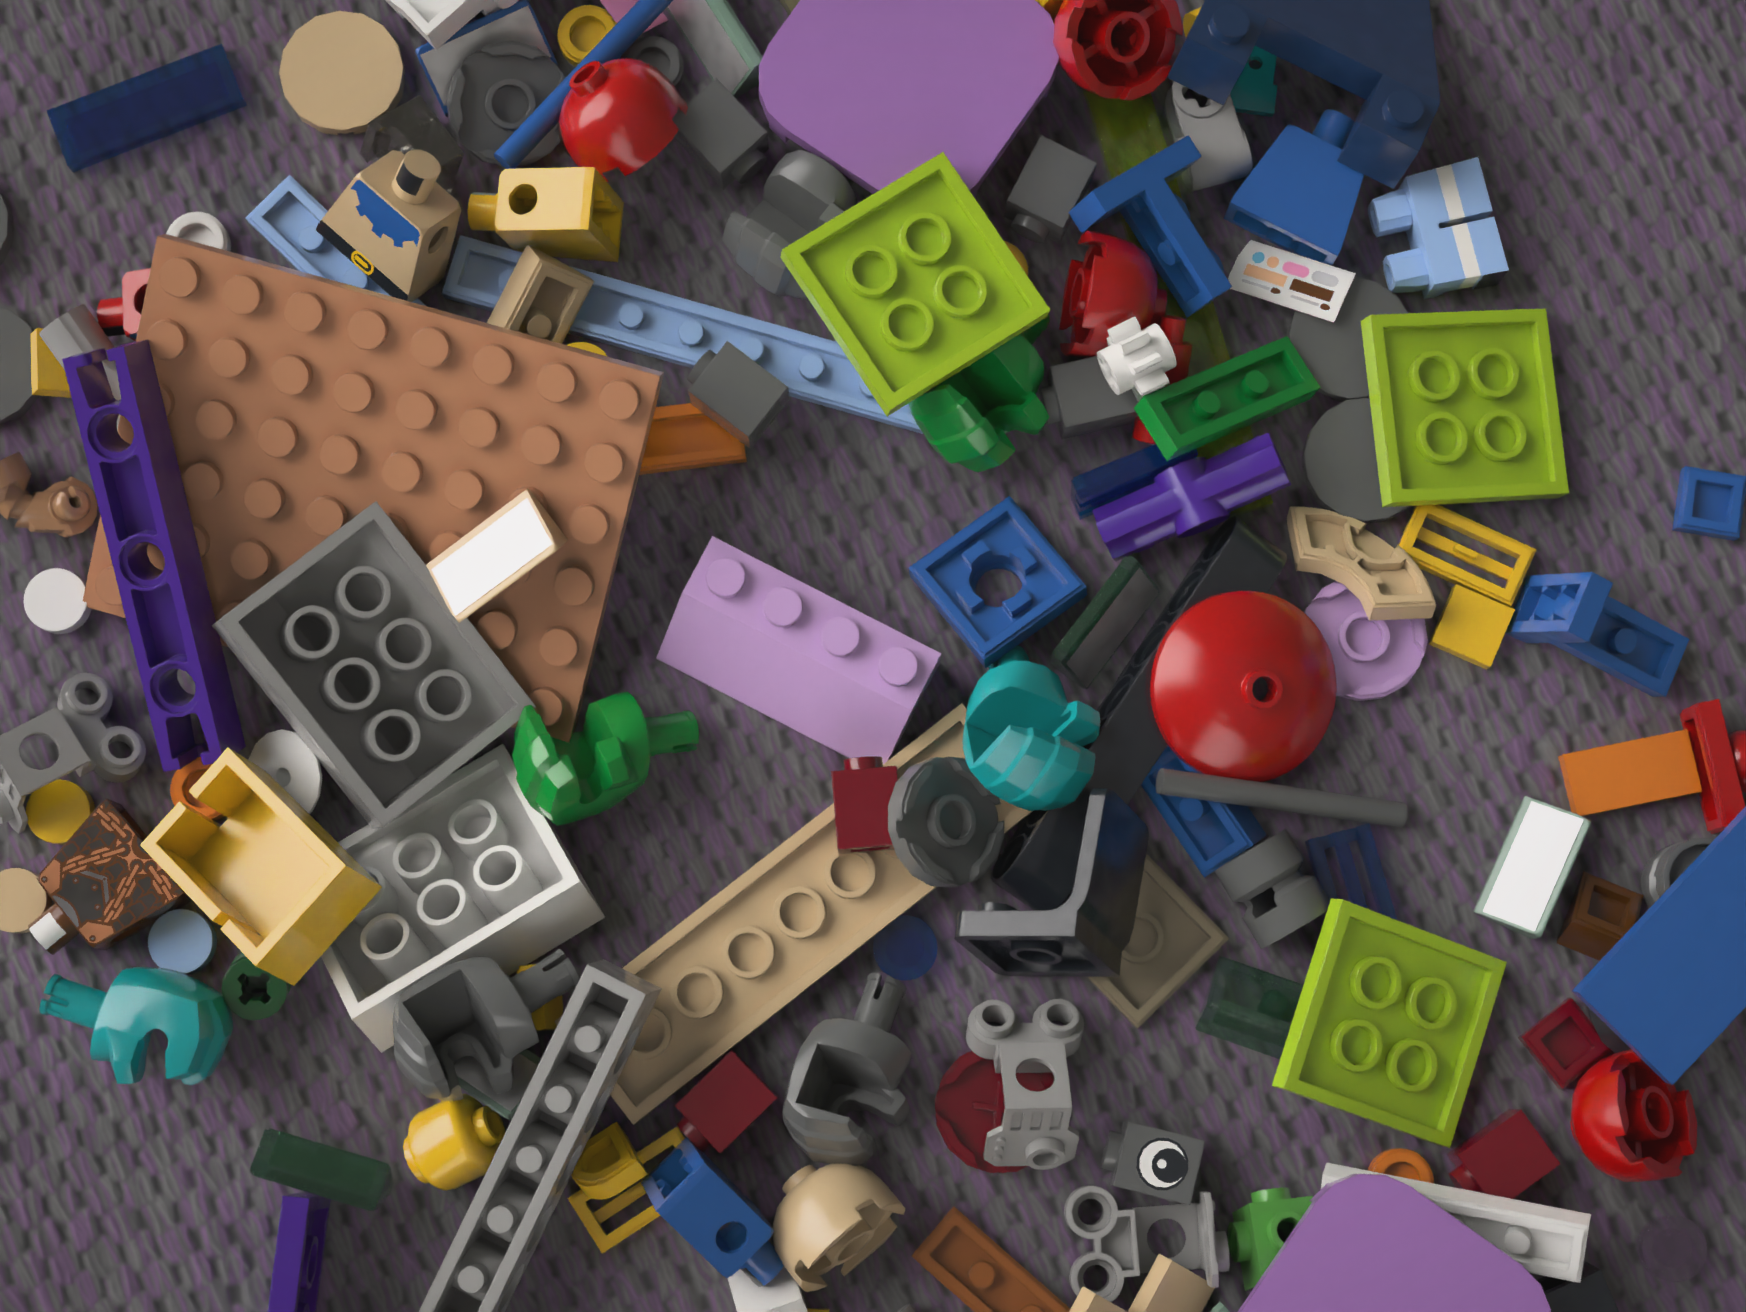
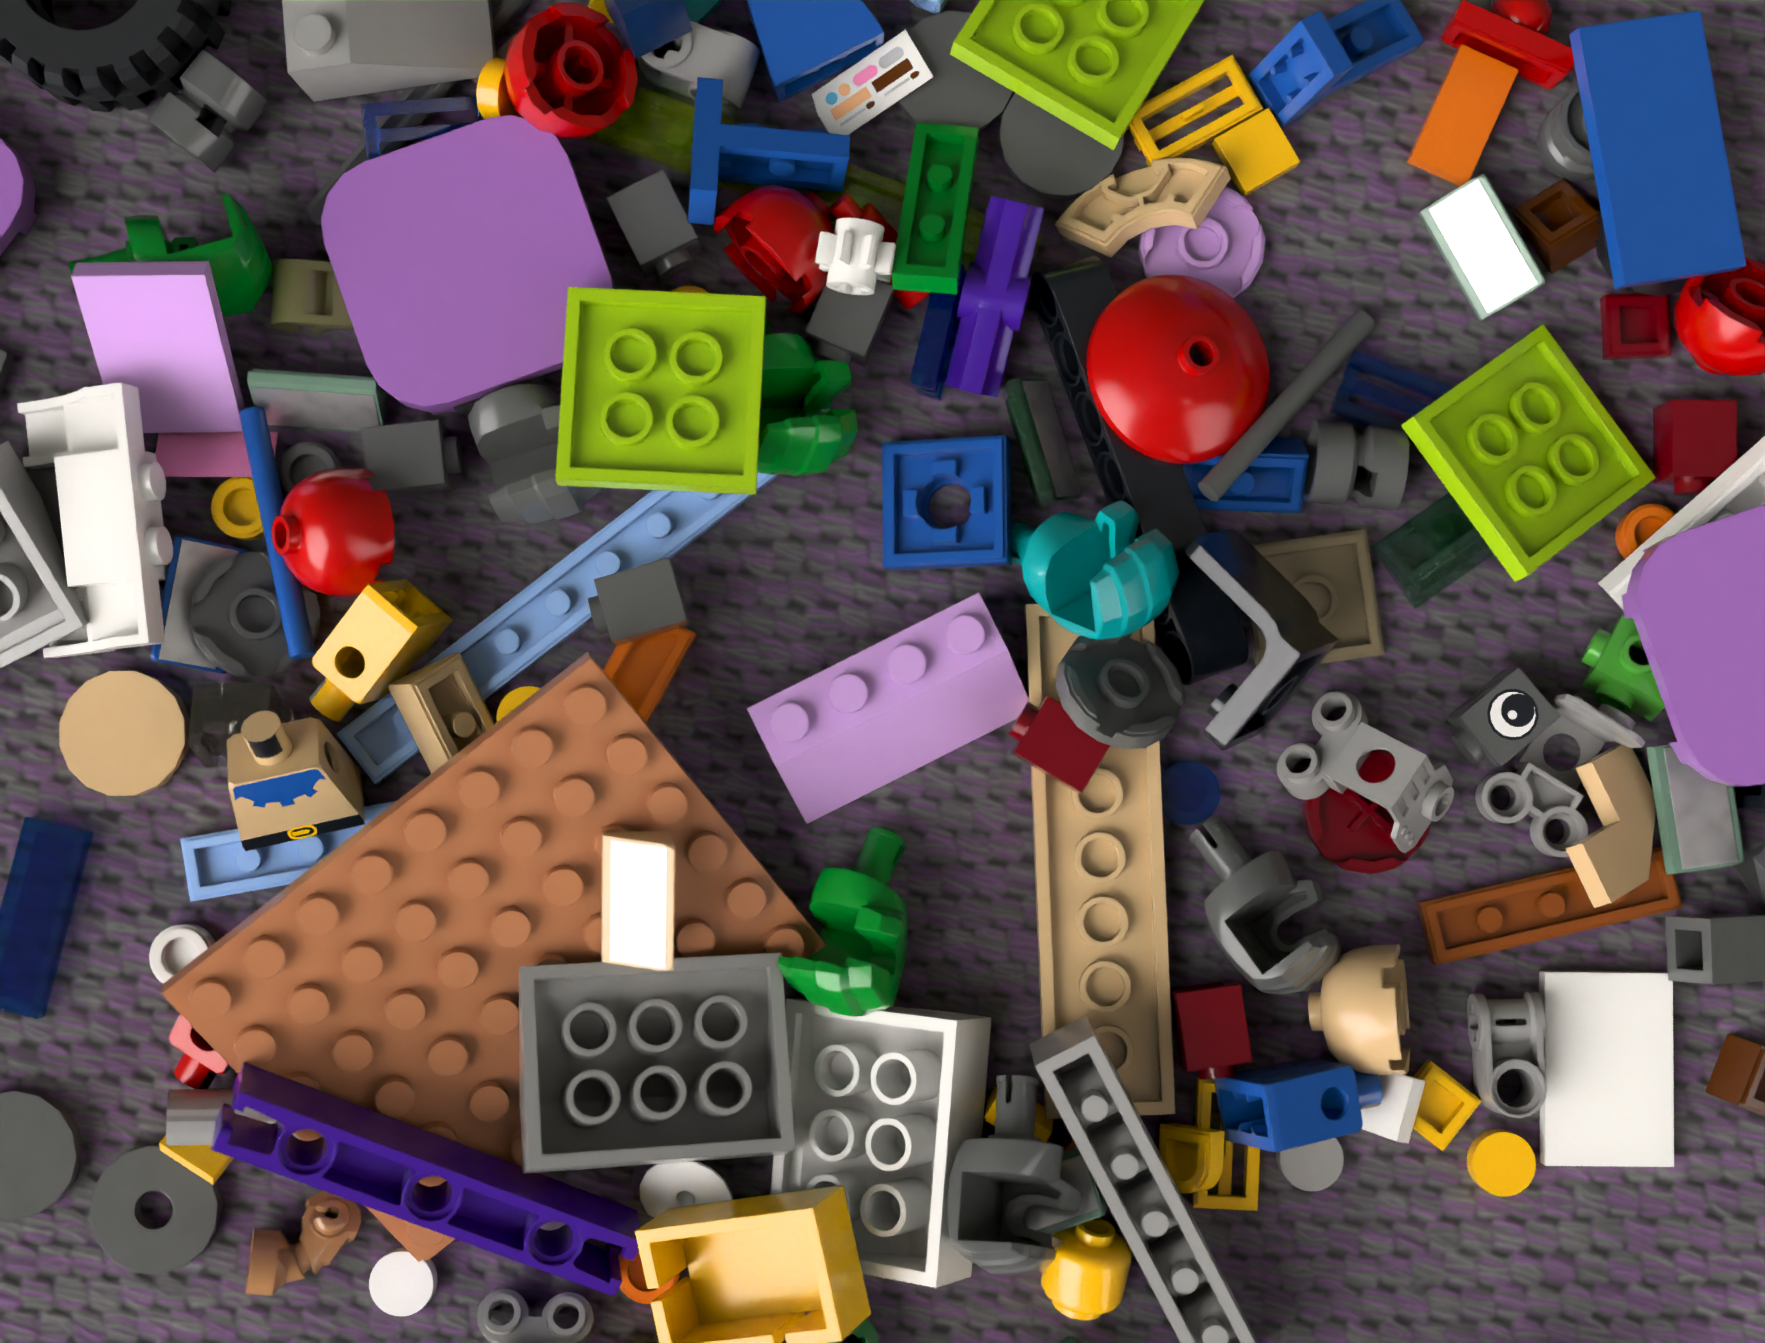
camera: 55 degrees left, 5 degrees up
(675, 1268) = (1312, 1165): none -> light grey tile

